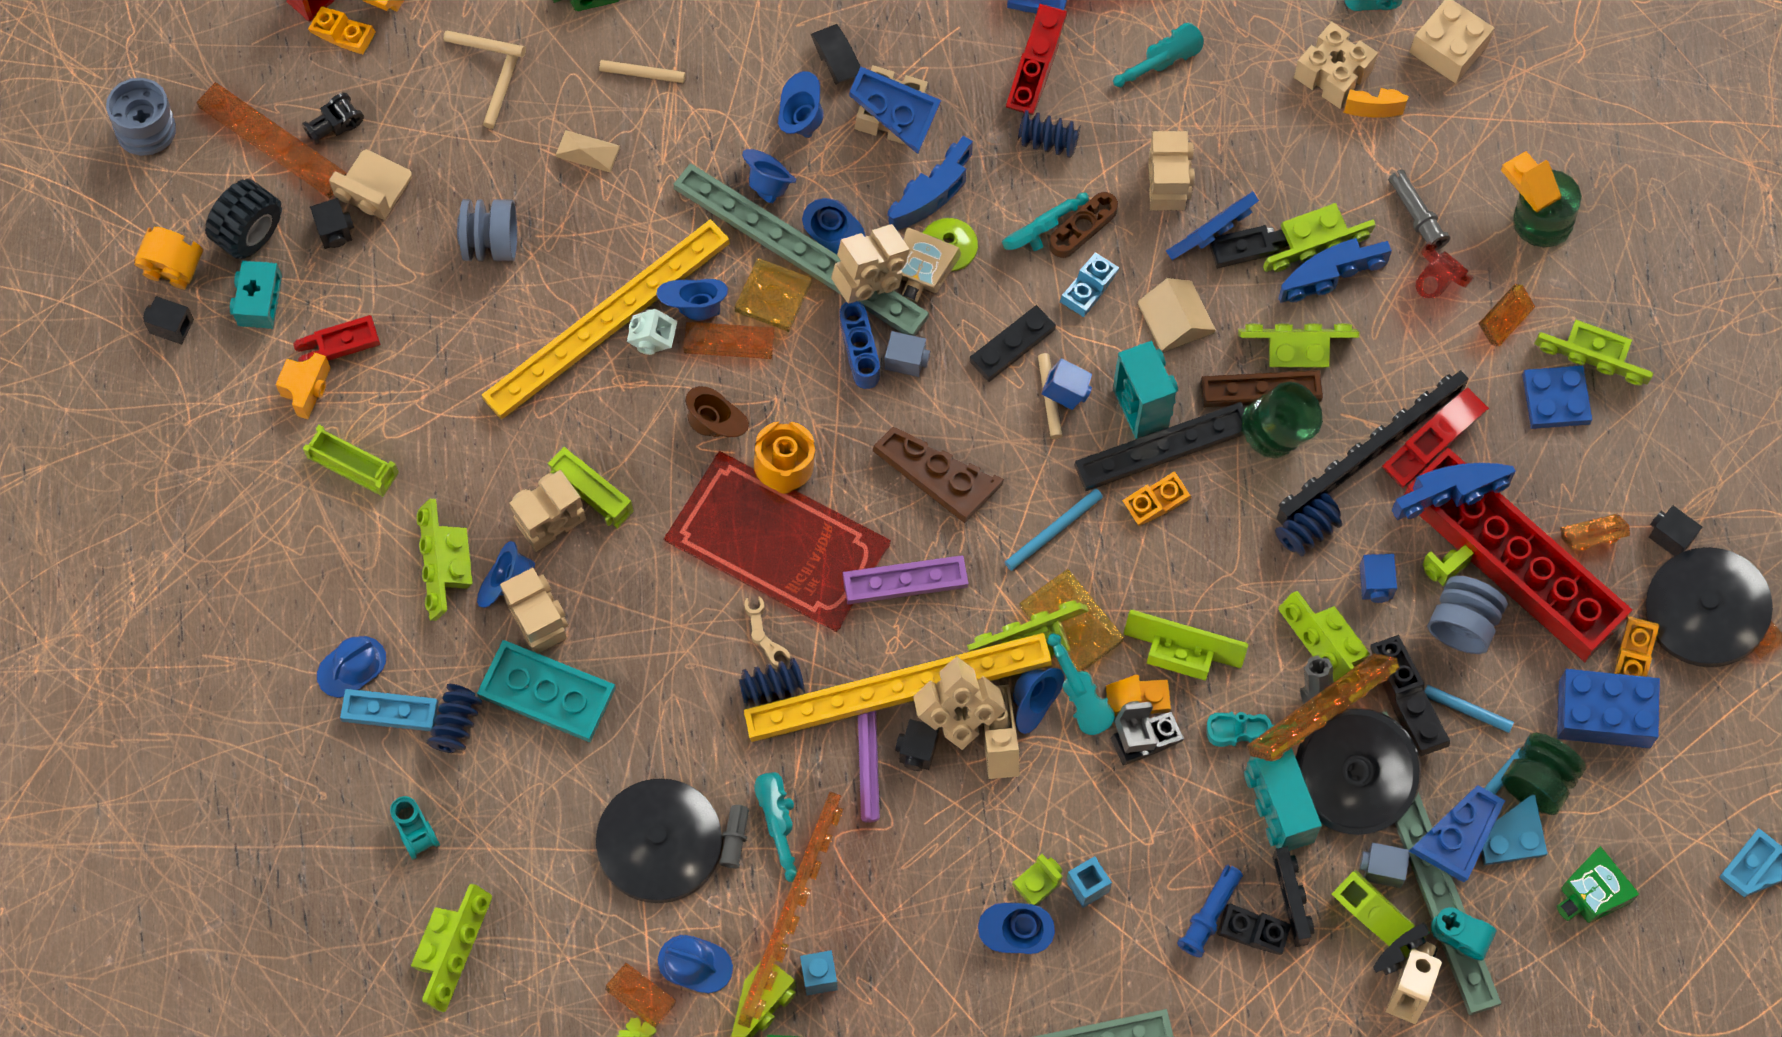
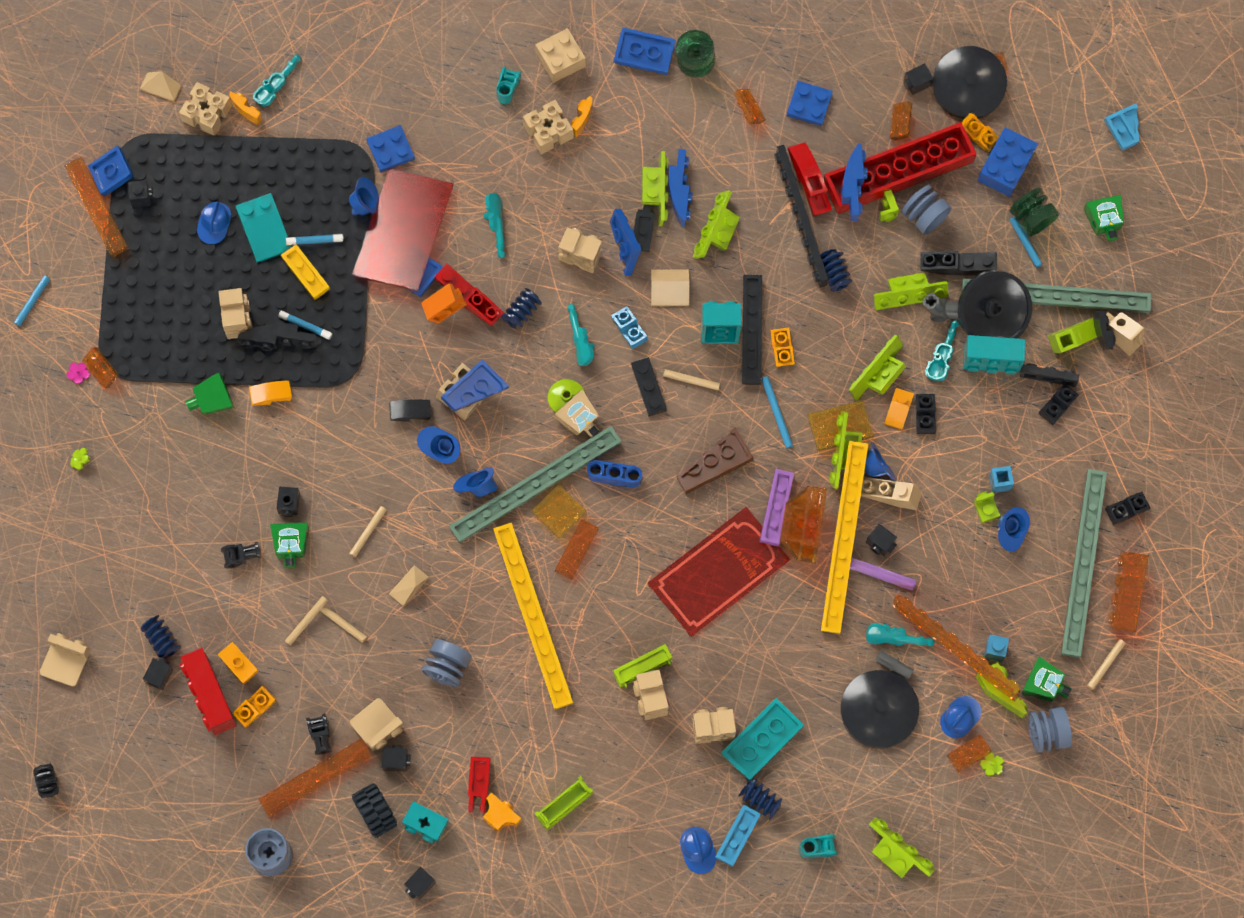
camera: 70 degrees left, 5 degrees up
(168, 257) = (378, 867): light orange brick -> none
(444, 556) = (653, 770): lime bracket -> none
(508, 565) = (680, 738): blue piece -> none
(651, 331) = (556, 591): light aqua brick -> none
(694, 298) = (543, 557): blue piece -> none
(714, 415) = (626, 575): reddish brown piece -> none
(758, 635) = (775, 605): tan piece -> none
(771, 682) = (810, 607): dark blue piece -> none
(784, 456) = (682, 544): light orange brick -> none
(830, 222) = (531, 457): blue piece -> none
(870, 264) = (574, 444): tan brick -> none
(891, 624) = (803, 524): none -> clear orange wedge
(906, 354) = (632, 449): sand blue brick -> none
(932, 192) = (530, 396): blue slope -> none
(959, 703) = (872, 505): tan brick -> none
(1005, 31) = (443, 303): none -> orange hinge
(1067, 384) = (692, 366): brick -> none
(1085, 212) = (588, 300): reddish brown beam -> none
(1093, 712) = (900, 436): teal piece -> none
(1135, 727) = (922, 415): dark grey bracket -> none
(1204, 923) = (1046, 428): blue pin -> none
(1246, 388) = (736, 260): reddish brown tile -> none
(1282, 420) = (769, 256): clear green wheel -> none
(1323, 707) = (957, 308): clear orange plate -> none
(1378, 577) = (881, 248): blue brick -> none
(1385, 865) = (1050, 318): sand blue brick -> none
(1424, 220) = (671, 123): dark grey pin -> none
(1443, 269) = (707, 127): clear red tile -> none
(1461, 834) = (1051, 270): blue wing -> none
(1467, 933) = (1109, 293): teal piece -> none
(1468, 708) = (979, 232): dark azure bar -> none
(1512, 132) = (644, 51): none -> blue plate
(1516, 835) = (1059, 244): dark azure wing -> none
(1532, 180) = (682, 53): light orange slope -> none
(1597, 348) = (790, 67): lime bracket -> none

